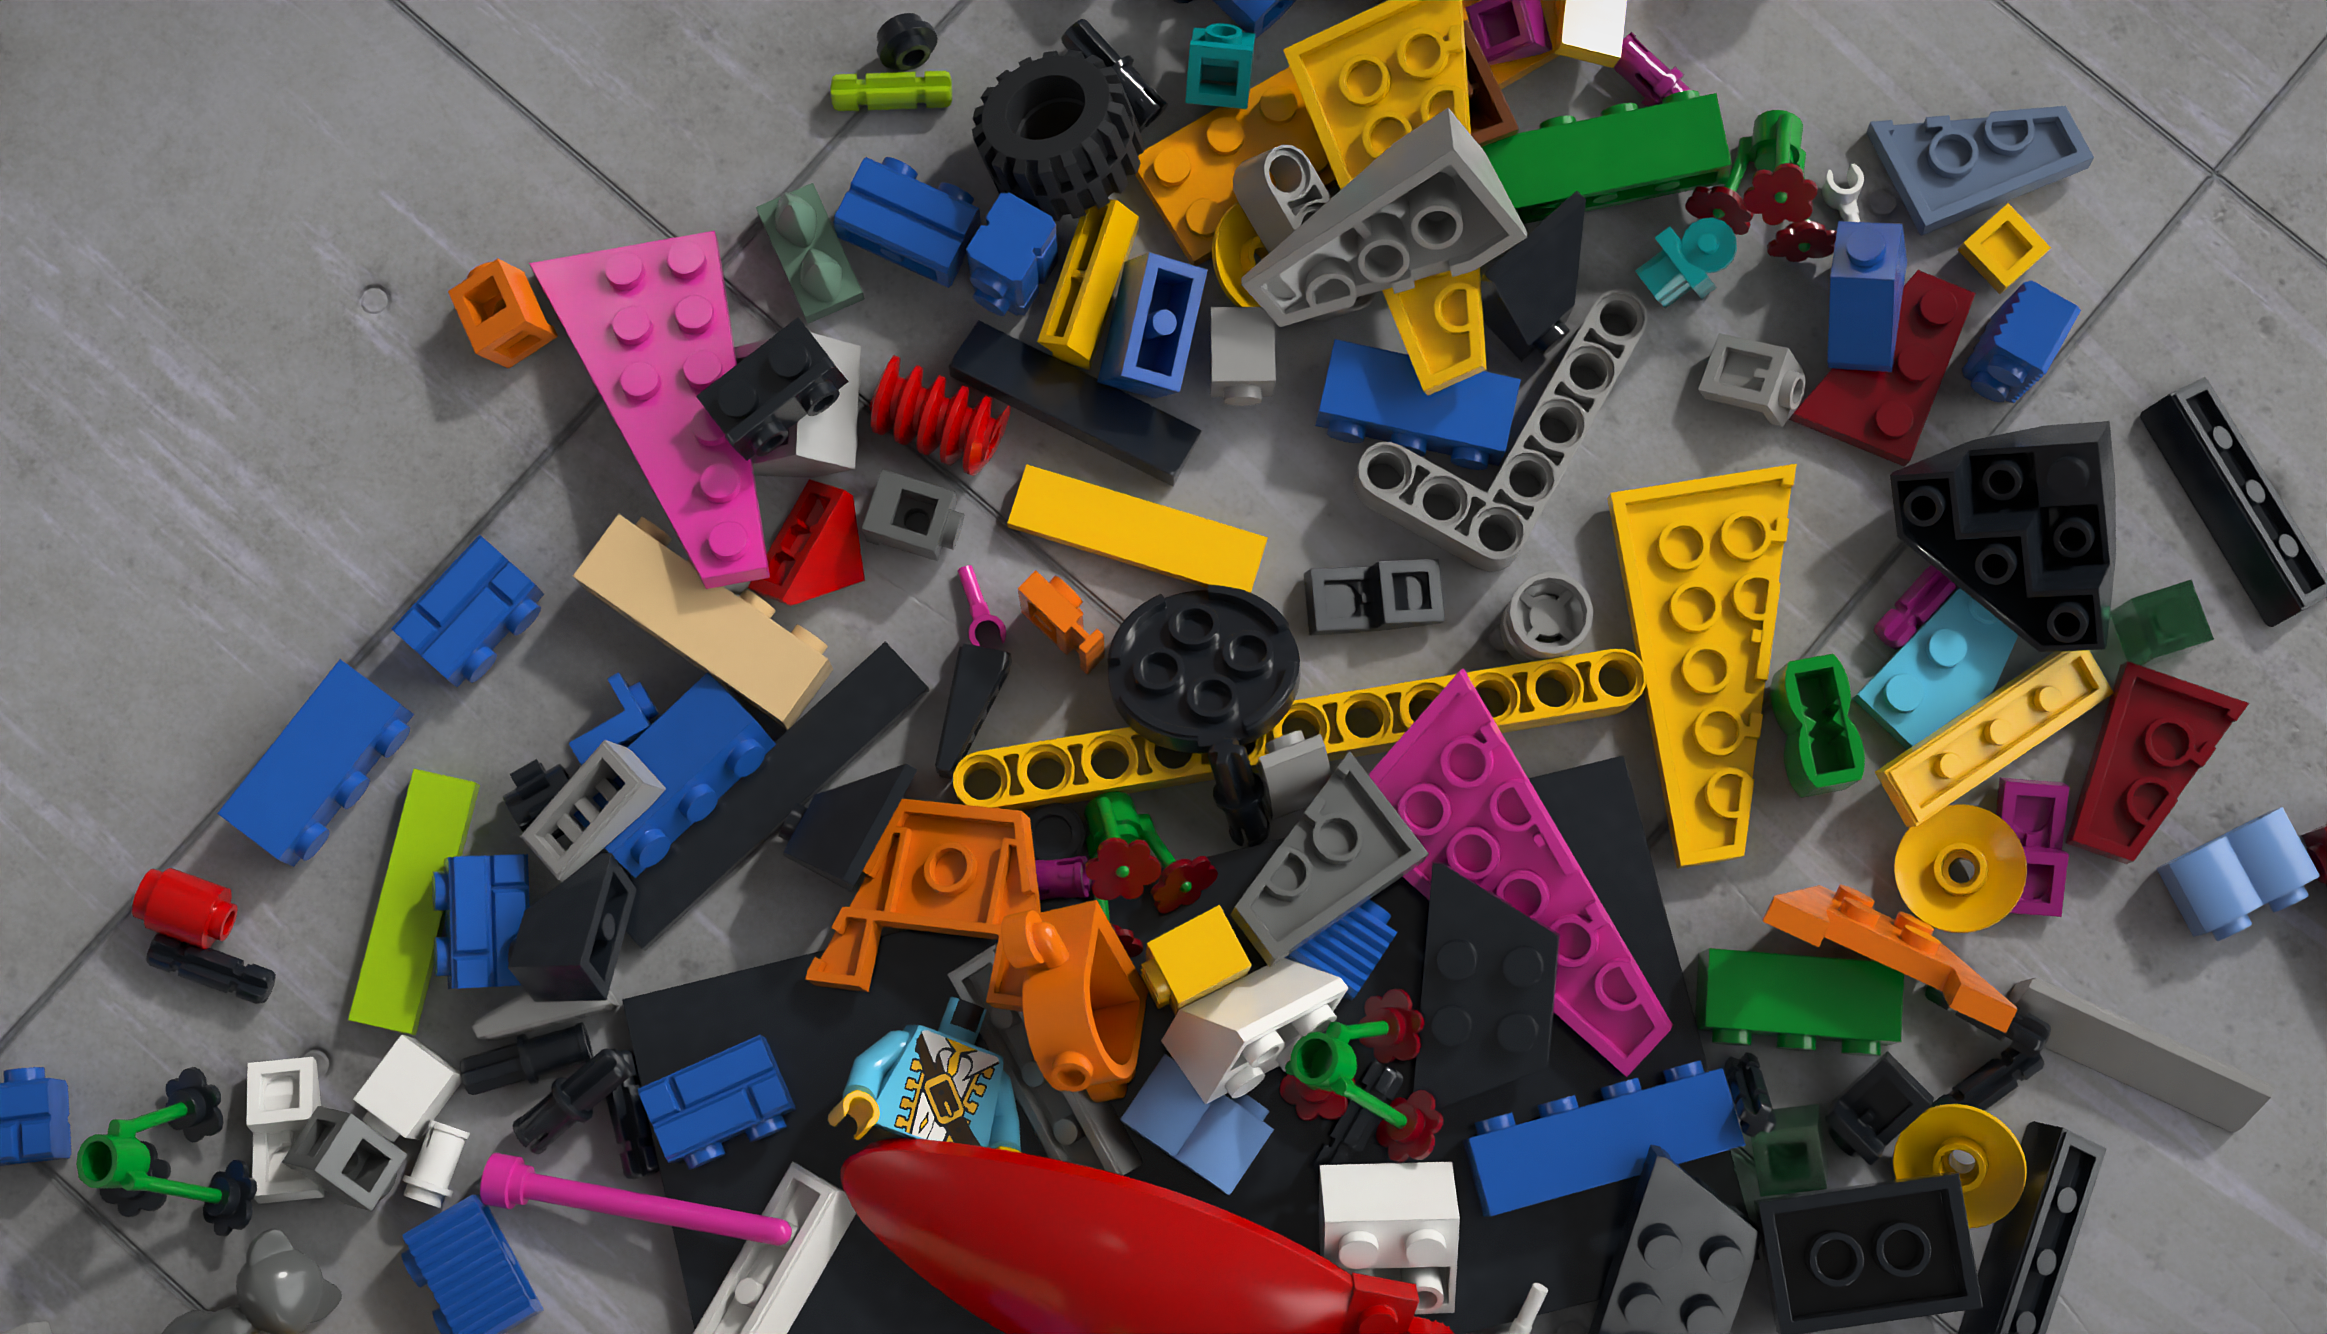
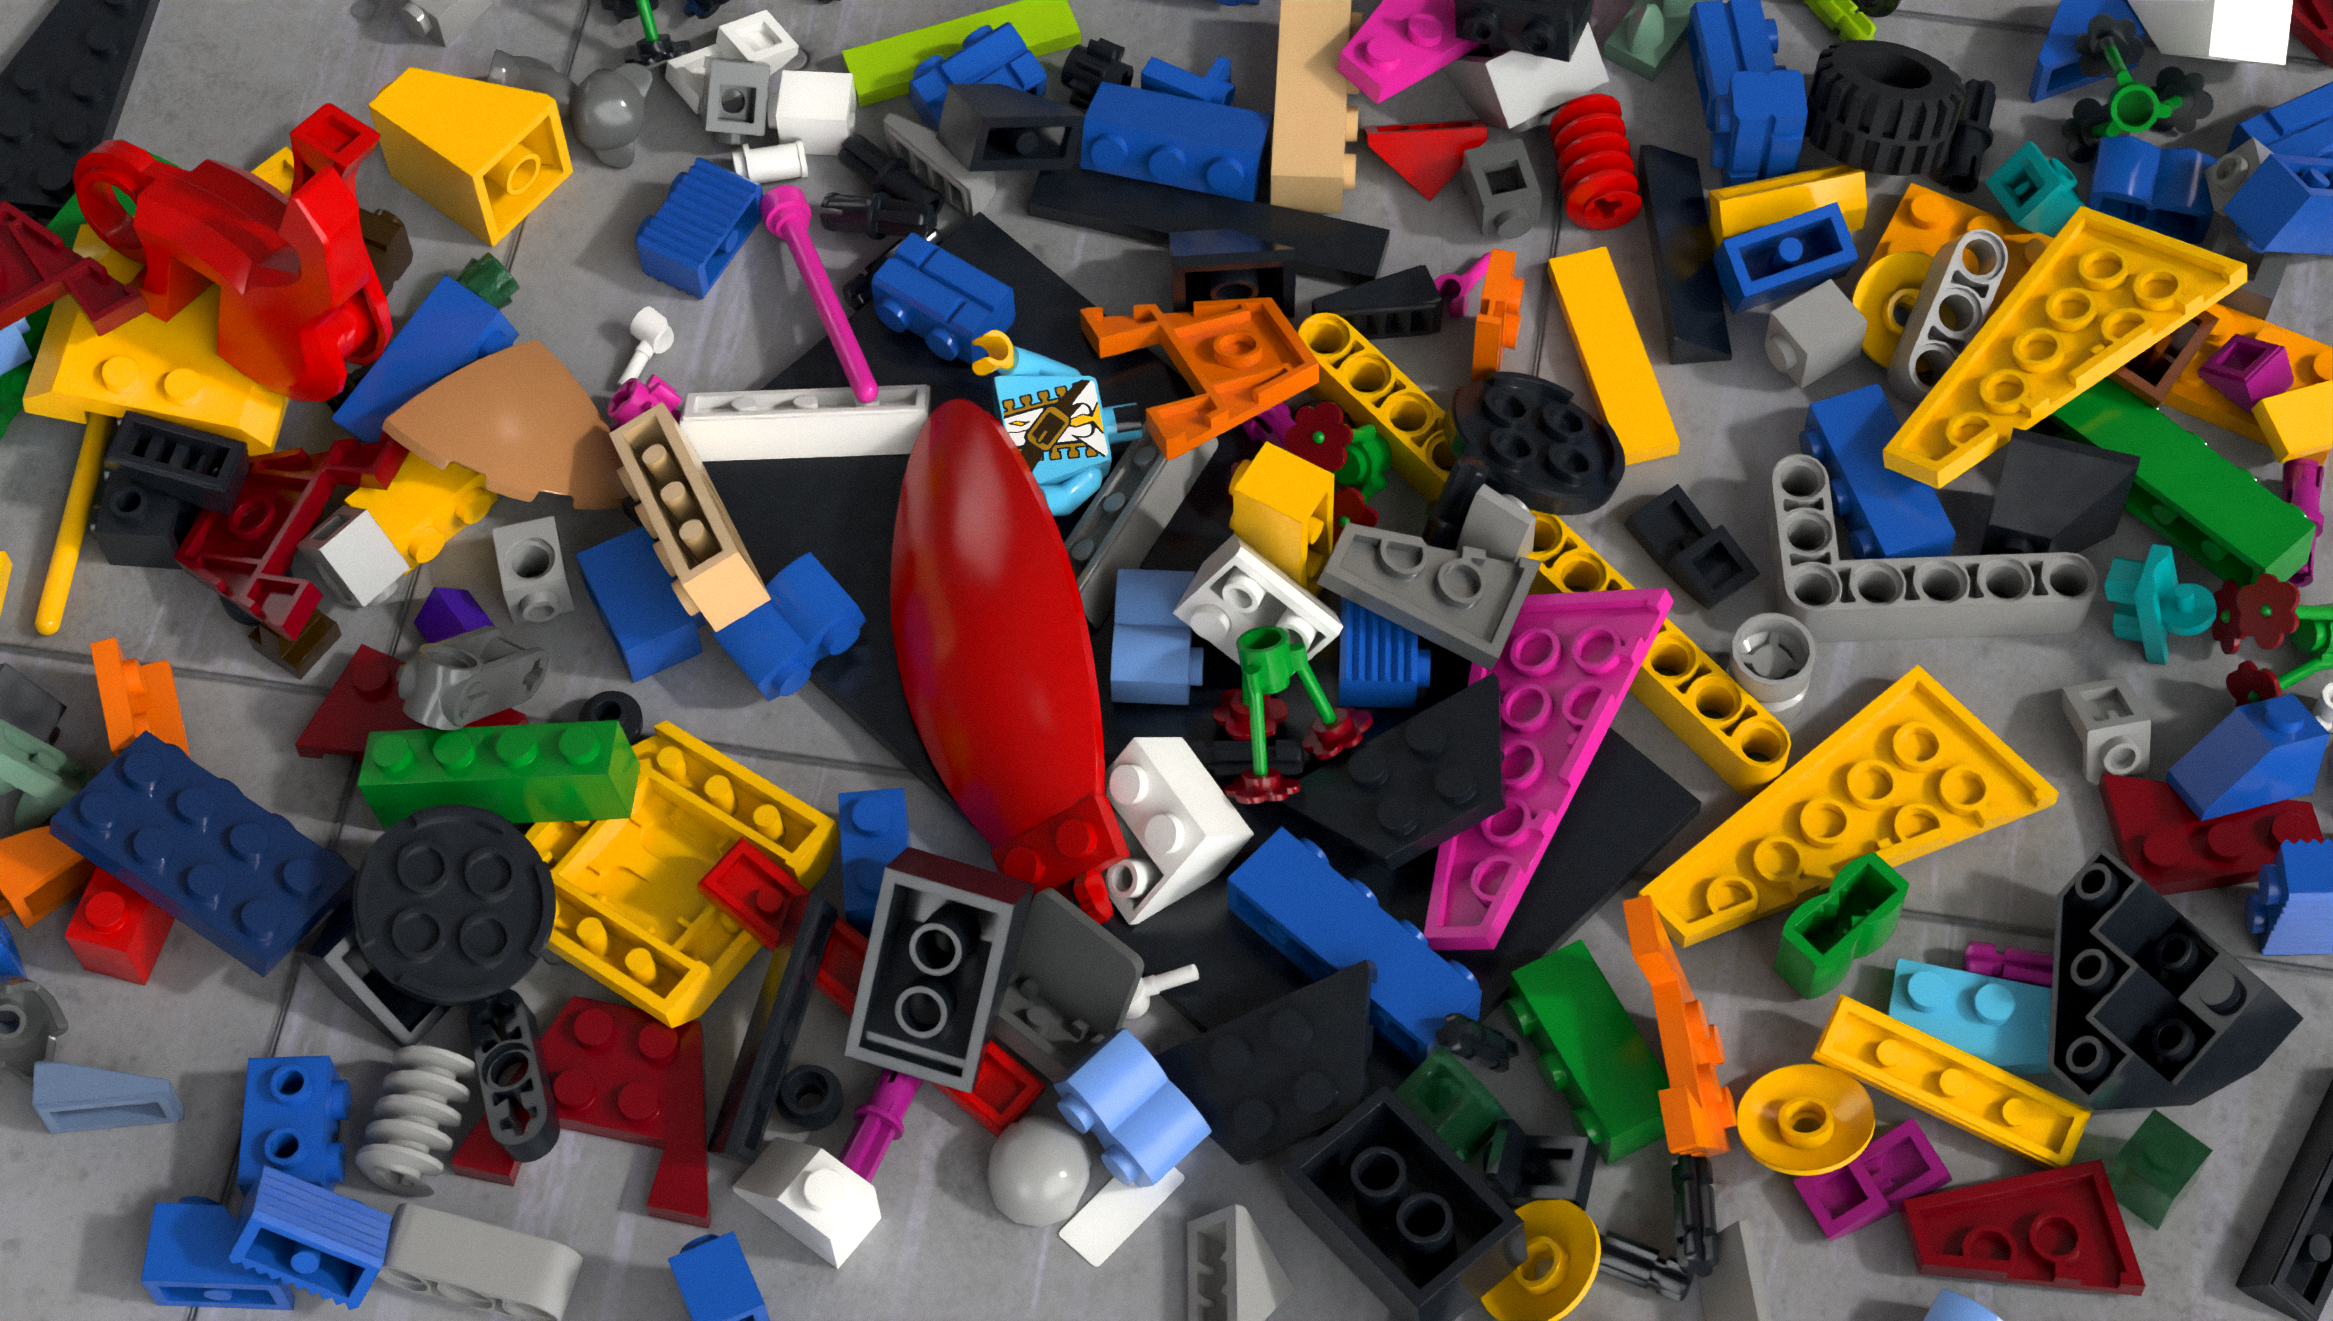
camera: 65 degrees right, 20 degrees down
(606, 824) = (1113, 86): light grey slope -> none
(1078, 998) = (1179, 462): orange piece -> none
(1405, 217) = (2009, 345): light grey wedge -> none

